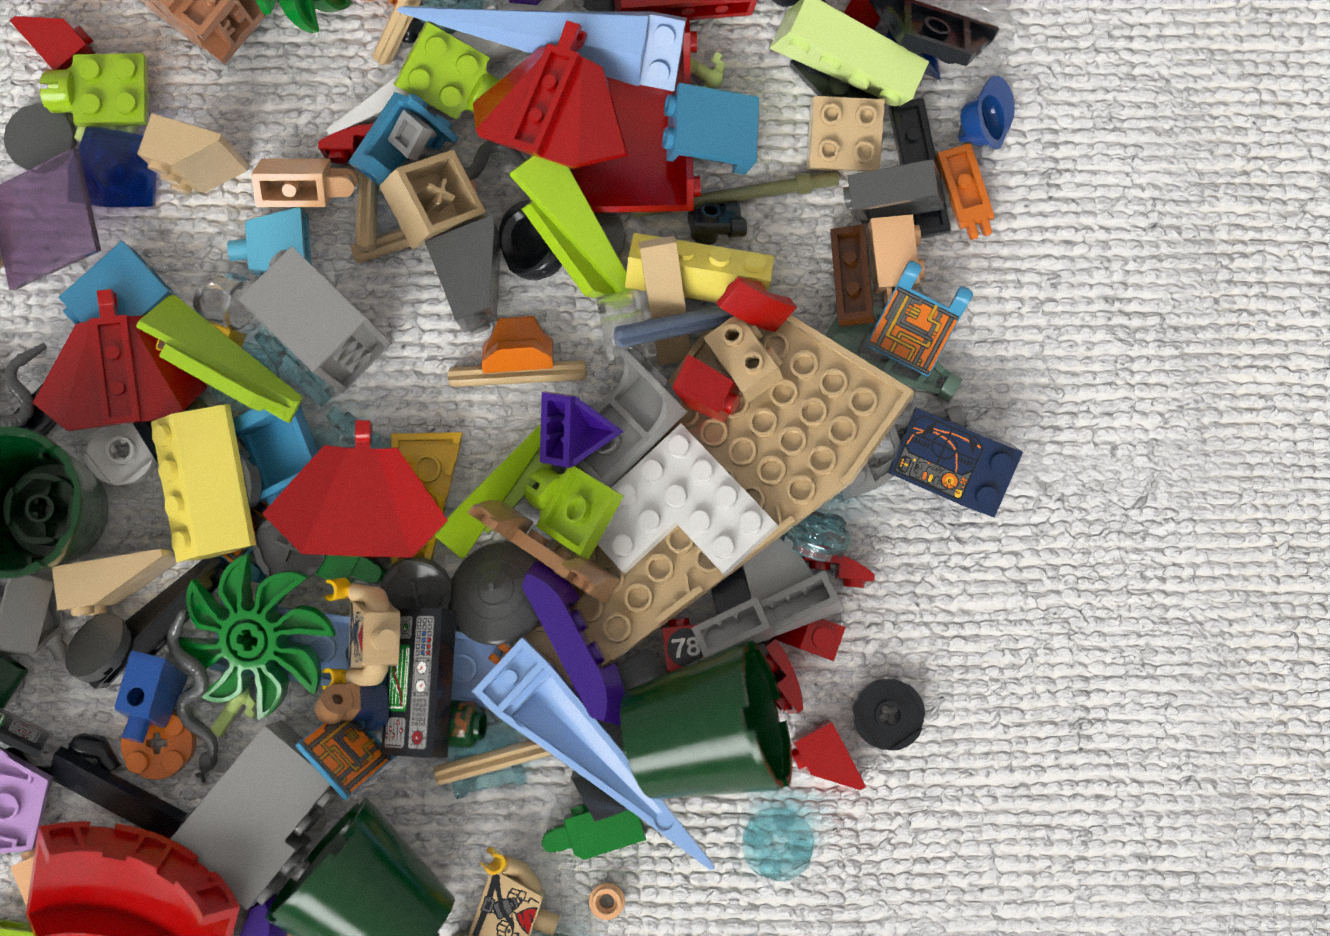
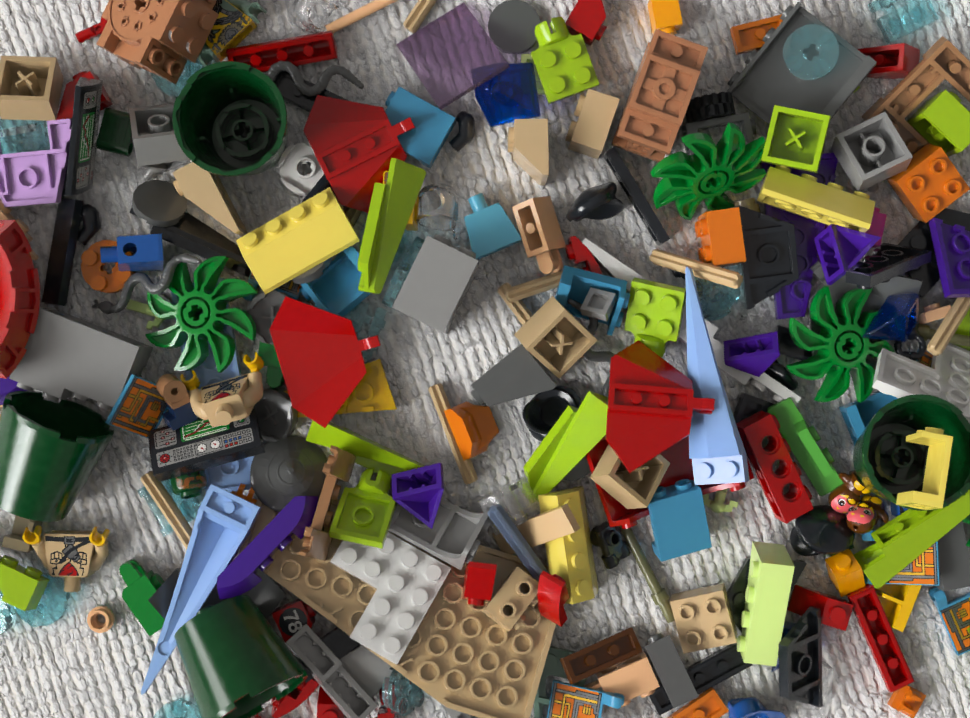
camera: 75 degrees right, 5 degrees up
(136, 233) = (466, 130): none -> black arm
(187, 76) = (594, 121): none -> tan brick
(290, 103) = (596, 203): none -> black piece
(299, 55) = (636, 196): none -> black tile
(646, 171) = (630, 489): none -> tan brick

